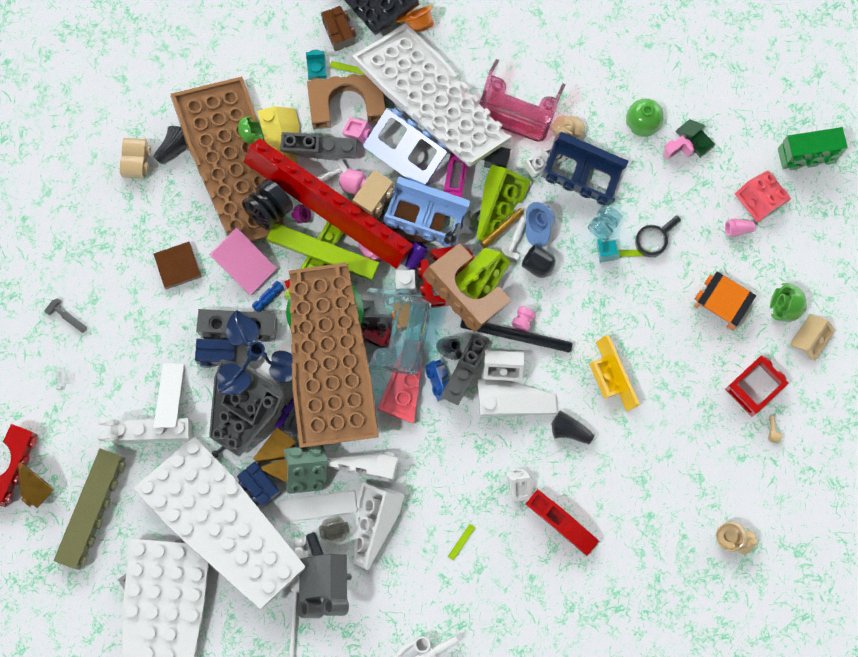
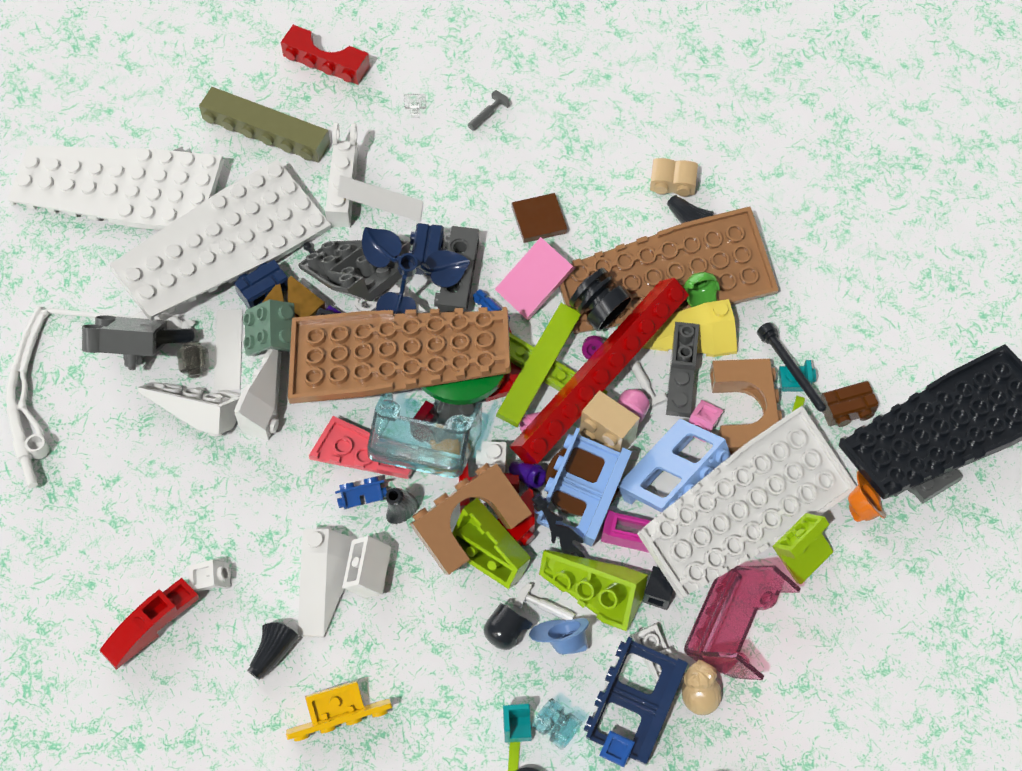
camera: 95 degrees right, 15 degrees down
(32, 487) = (298, 70): pearl gold slope -> none
(281, 84) = (769, 335): none -> black piece
(458, 58) = (804, 546): none -> lime bracket
(460, 543) = (153, 505): lime piece -> none
(465, 370) = (366, 520): dark grey slope -> none
(504, 226) = (559, 586): pearl gold bar -> none
(523, 318) = (431, 603): bright pink wheel -> none
(523, 336) = (405, 606): black axle -> none
(617, 182) = (617, 749): none -> blue tile

